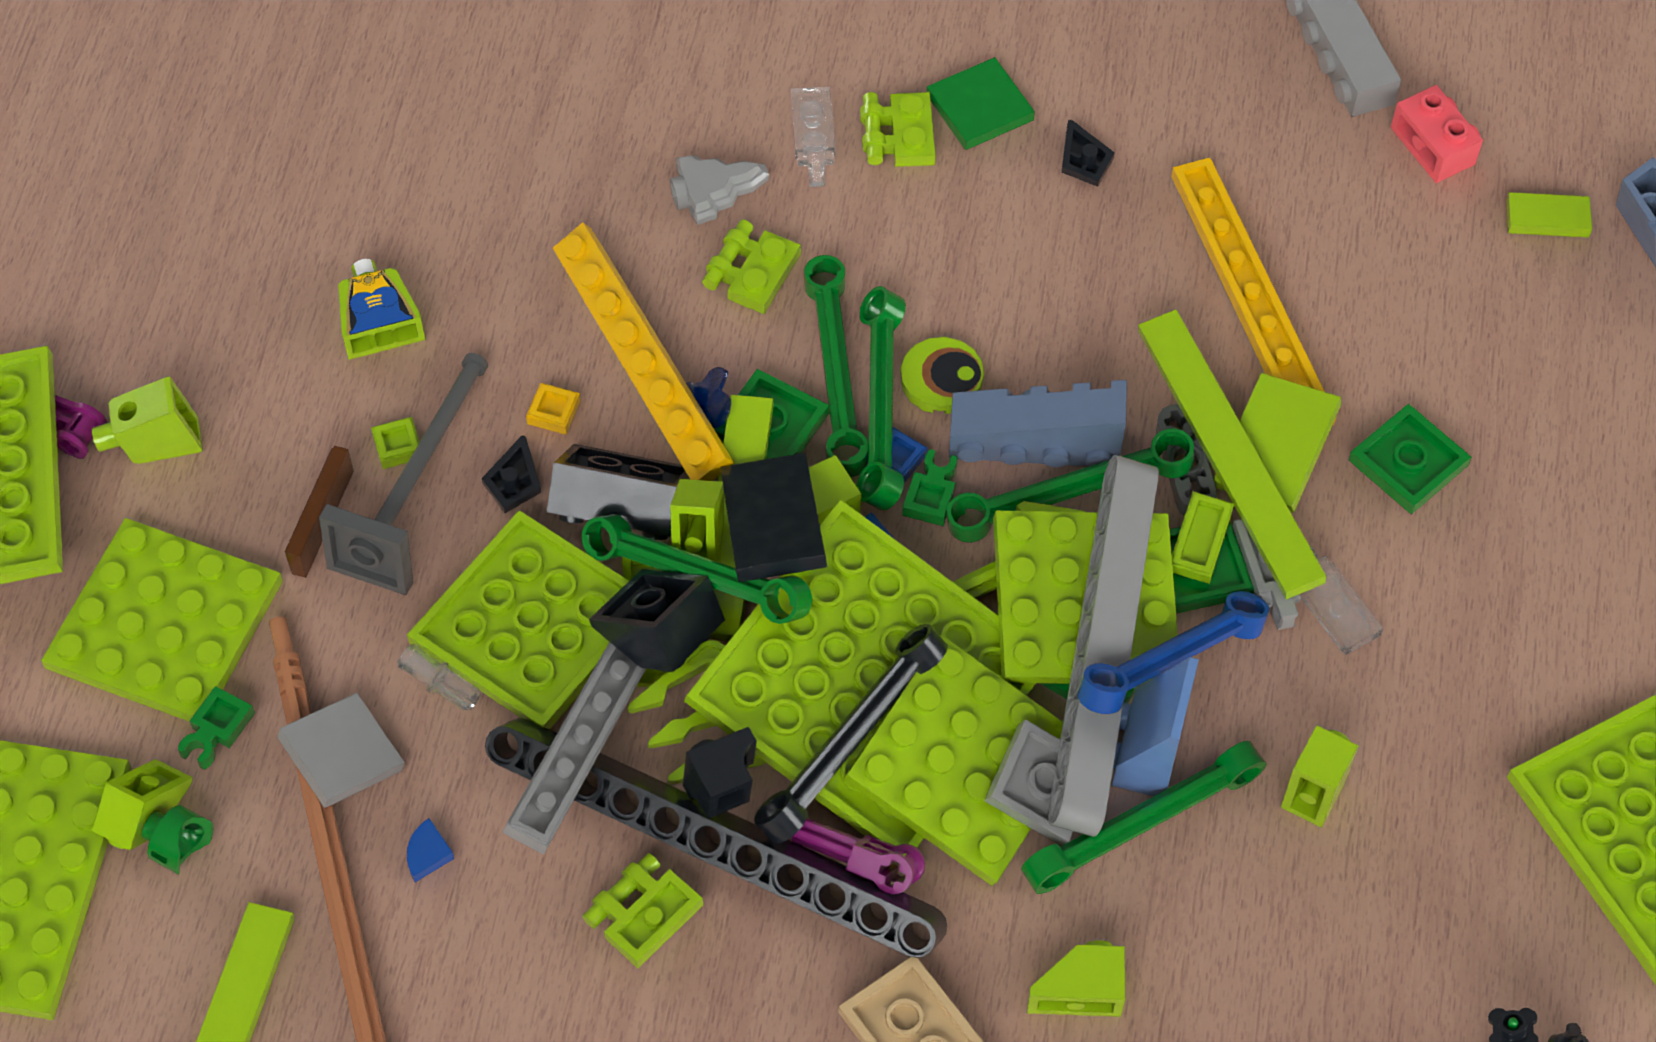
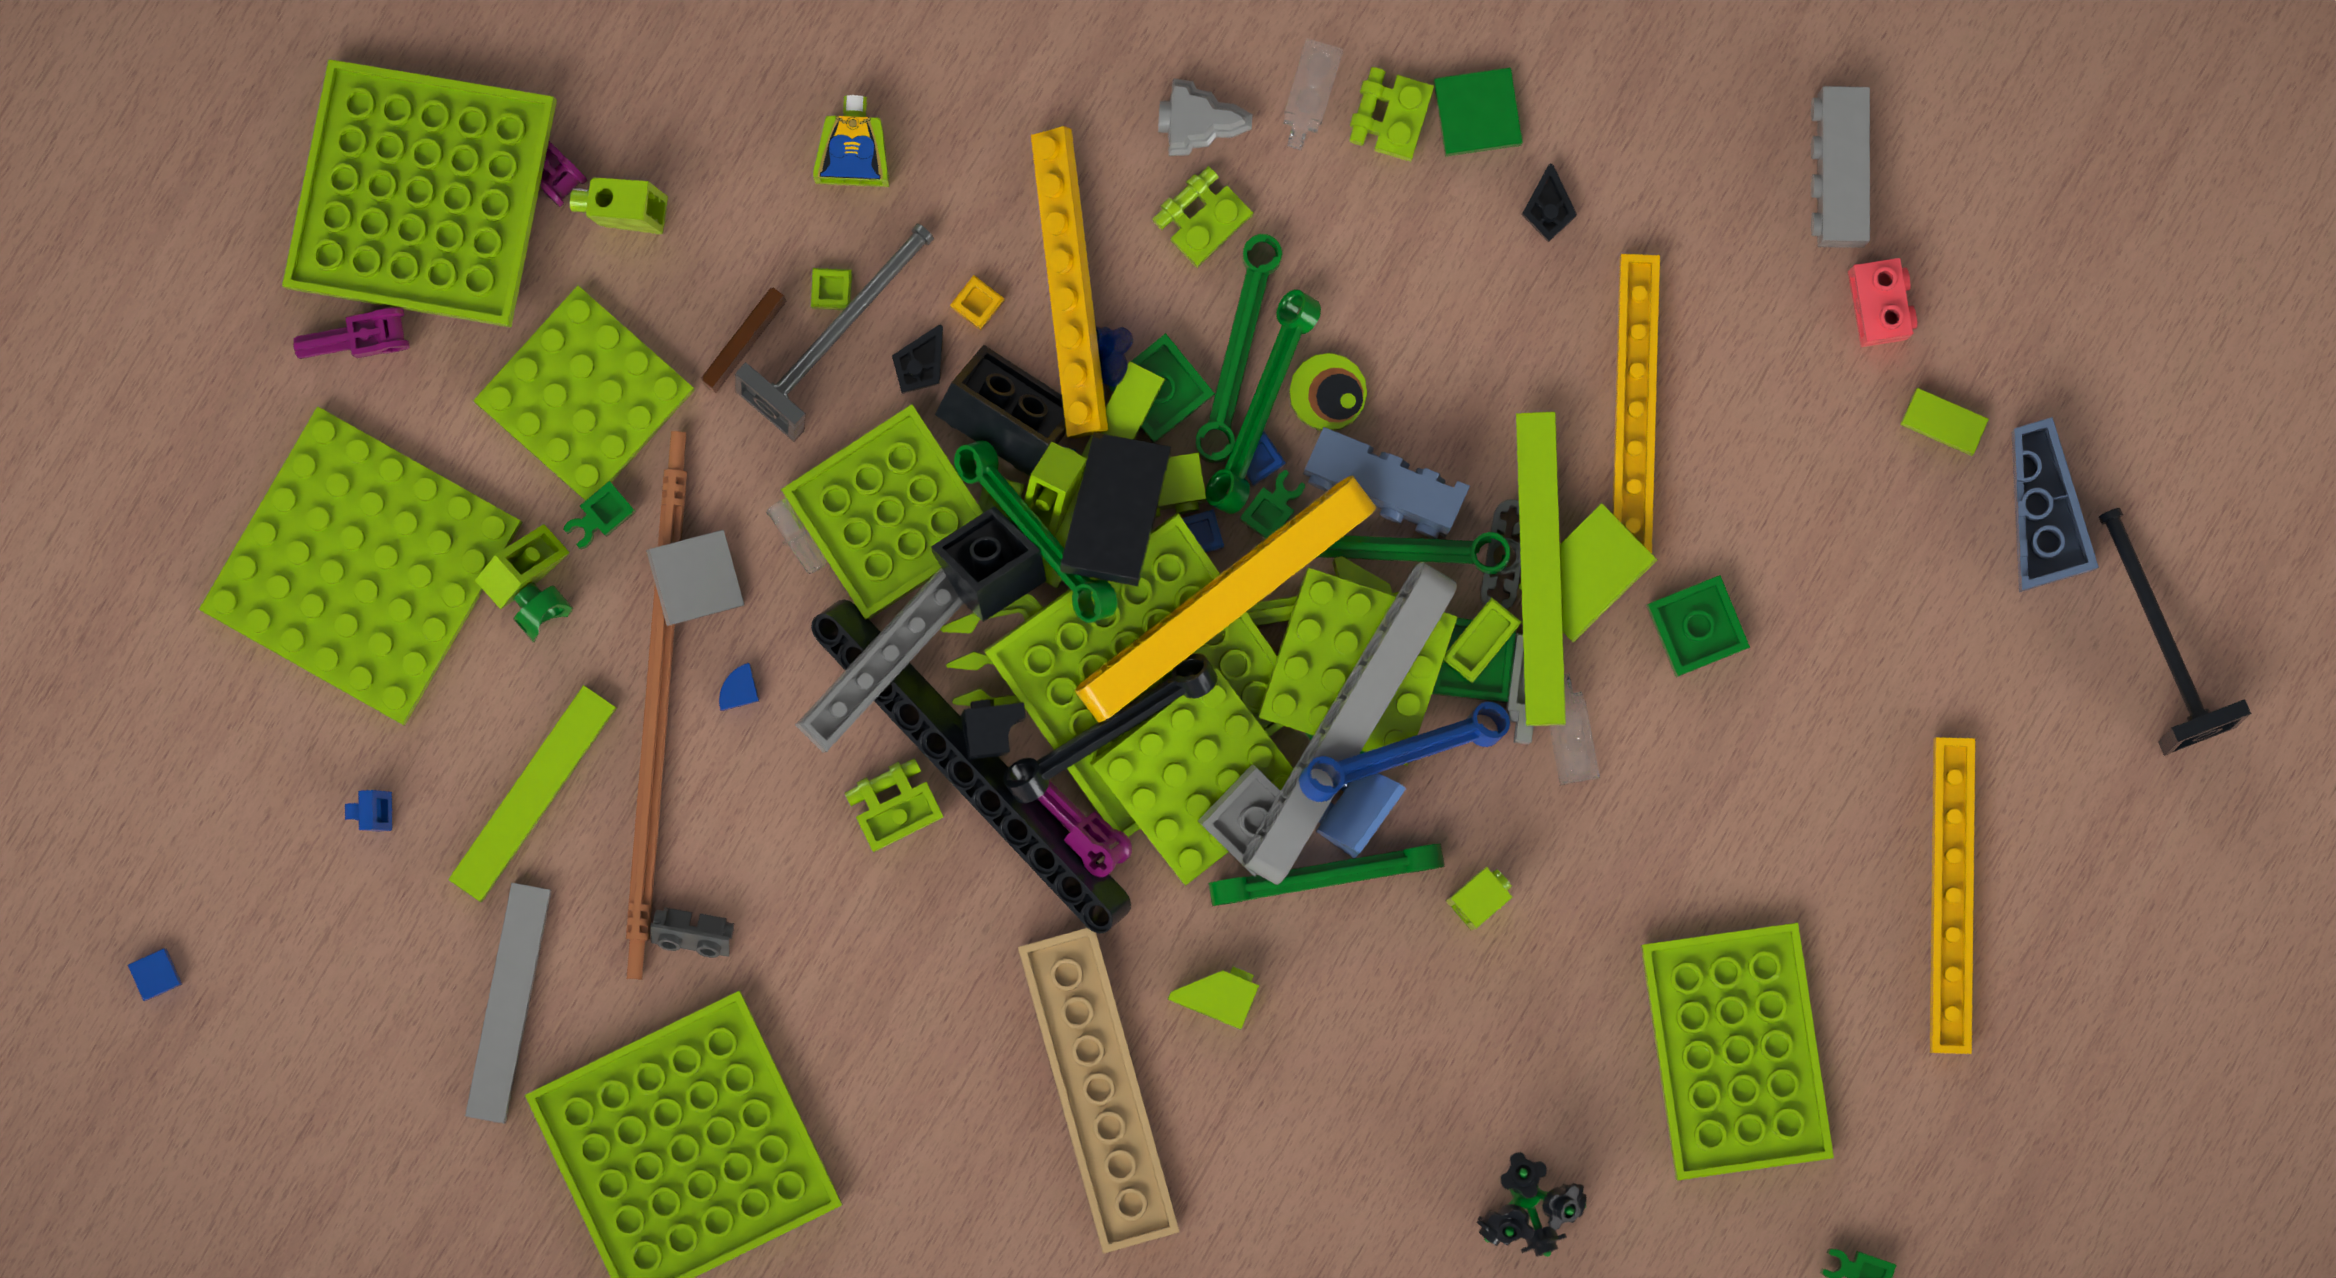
camera: 15 degrees right, 25 degrees up
(919, 568) = (1225, 599): none -> yellow beam

